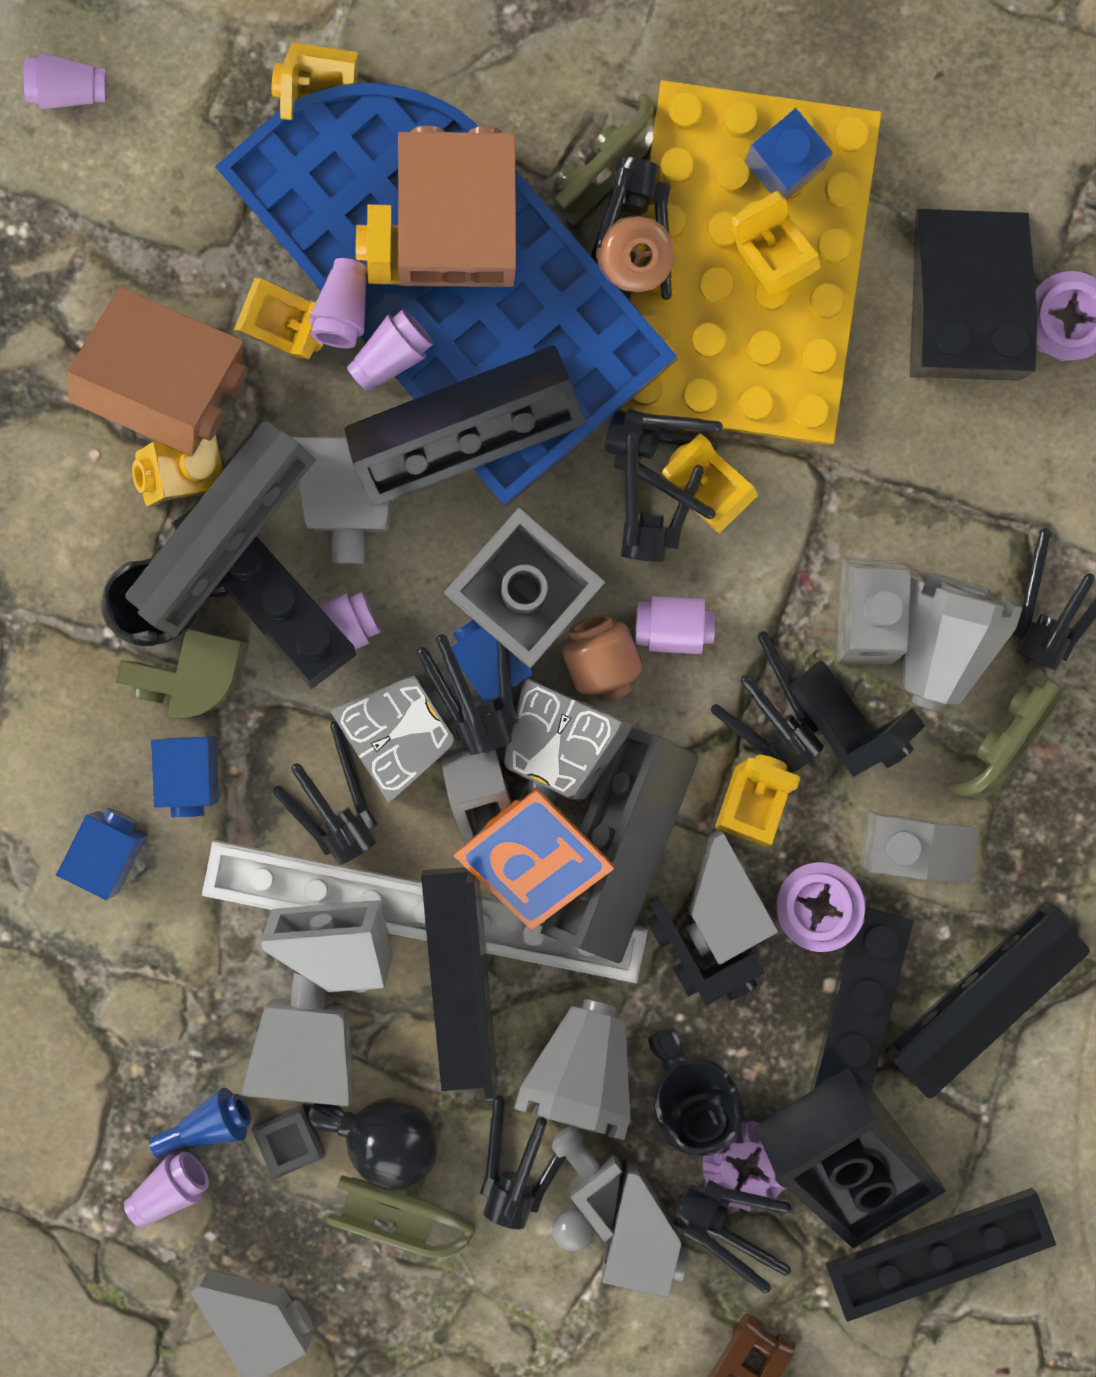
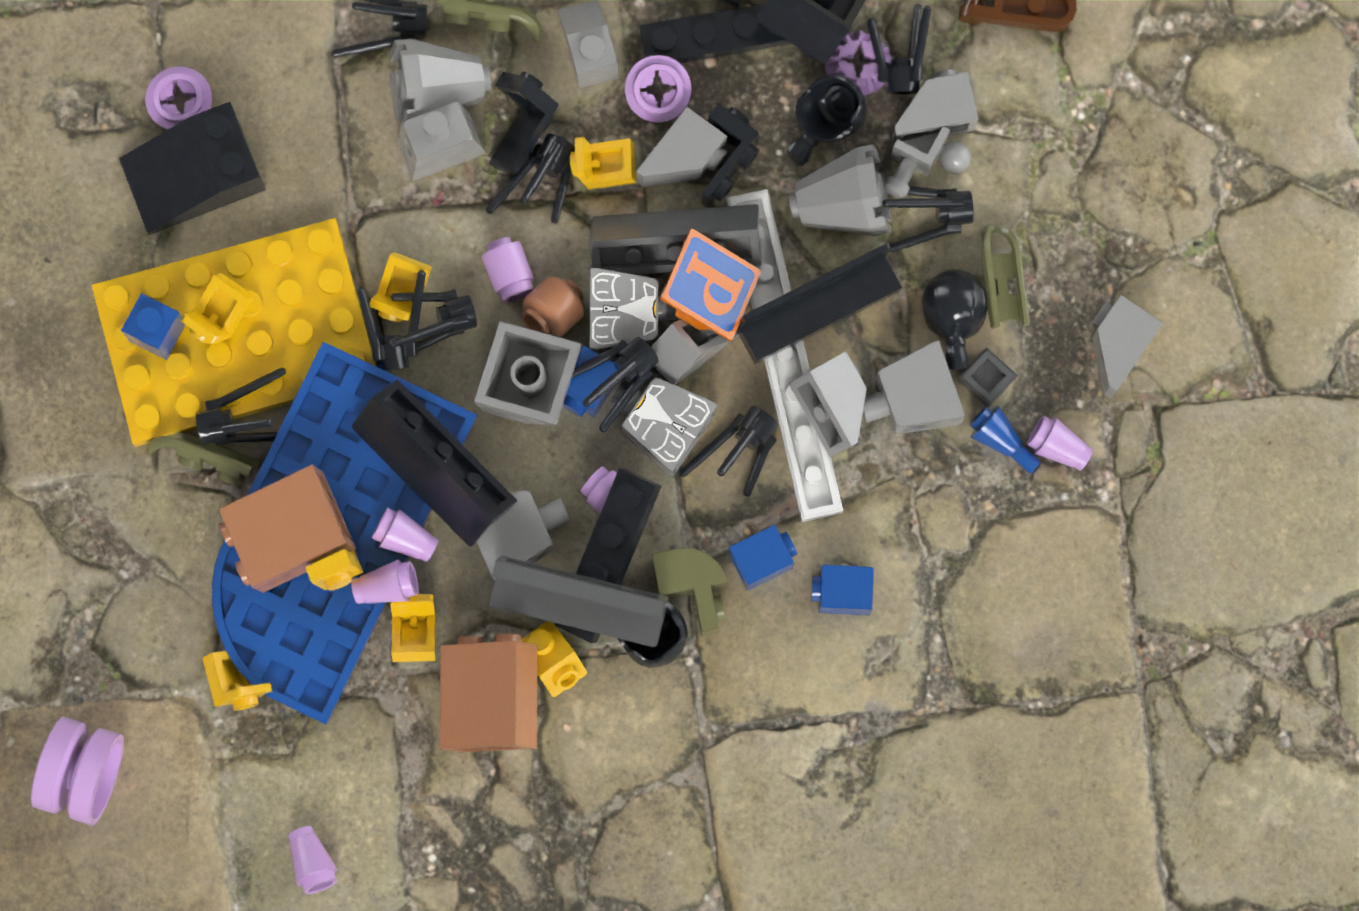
camera: 115 degrees left, 10 degrees down
(622, 239) = (265, 397): nougat head -> none

